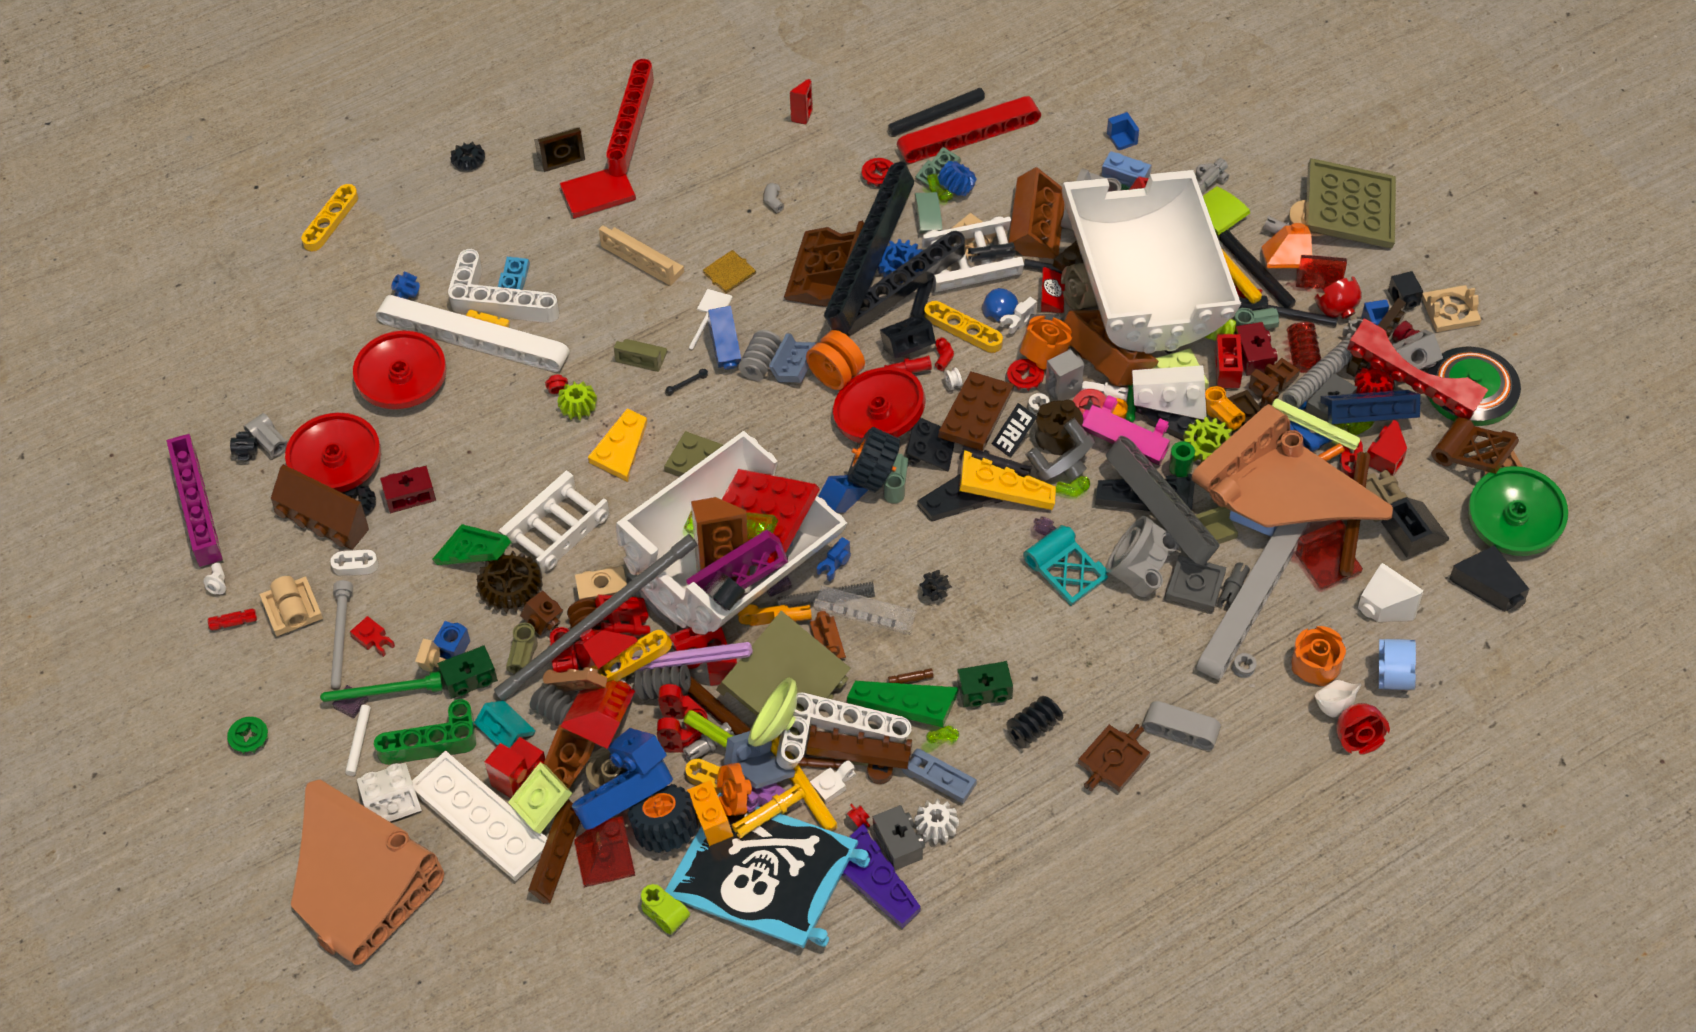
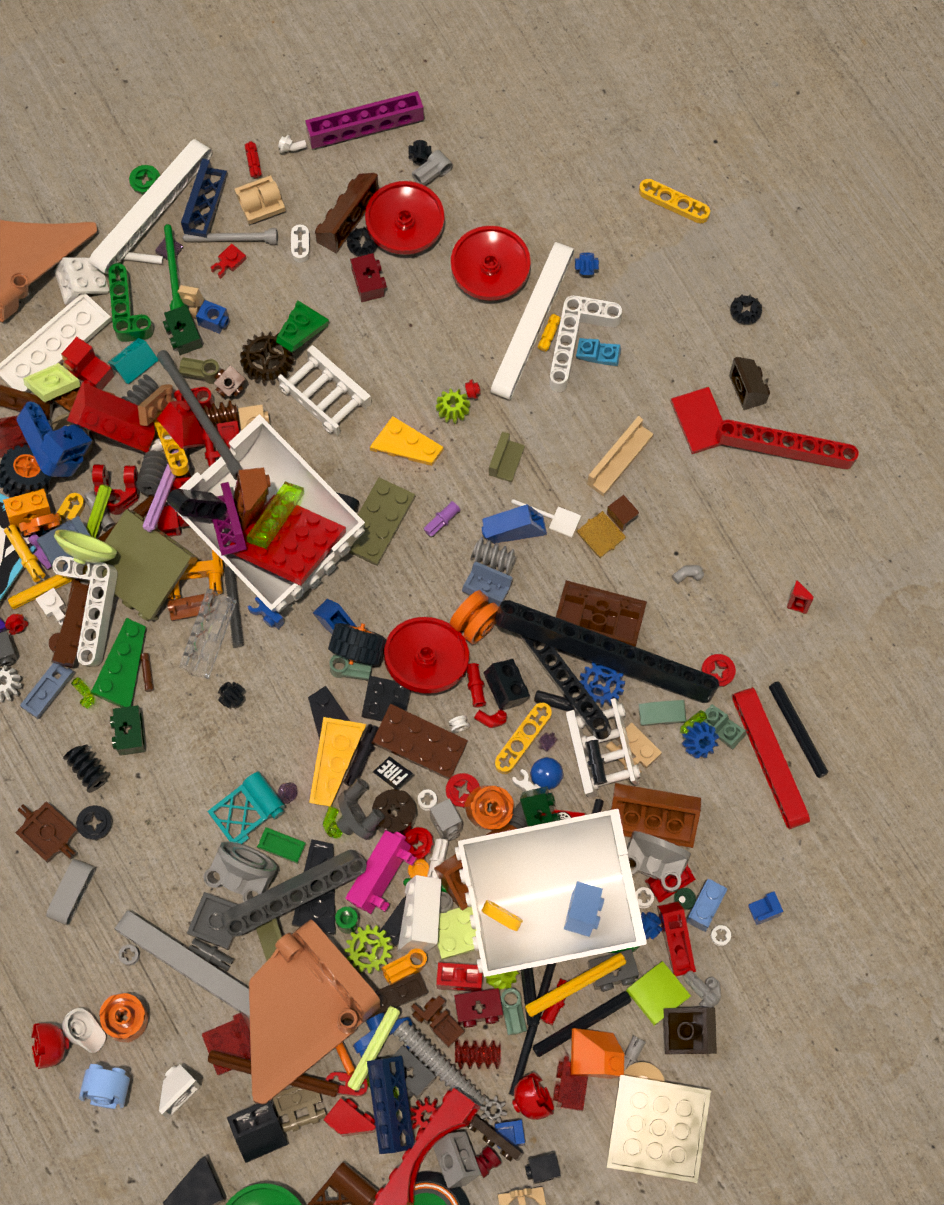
camera: 90 degrees right, 15 degrees up
(286, 668) = (197, 196): none -> dark blue fence
(293, 718) = (150, 206): none -> white beam
(703, 373) = (482, 510): black hinge -> none
(707, 248) = (622, 512): none -> reddish brown panel
(714, 406) = (441, 519): none -> medium lavender axle
(966, 303) = (547, 741): none -> clear purple plate
(1049, 295) = (535, 800): none -> dark green brick
(1102, 532) = (281, 845): none -> green tile
(1103, 705) = (85, 818): none -> black gear
(1154, 241) = (583, 909): none -> medium blue brick
(1155, 162) = (714, 934): none -> white bush
(1168, 309) = (501, 915): none -> yellow beam
(1253, 178) = (690, 1031): none -> dark brown slope

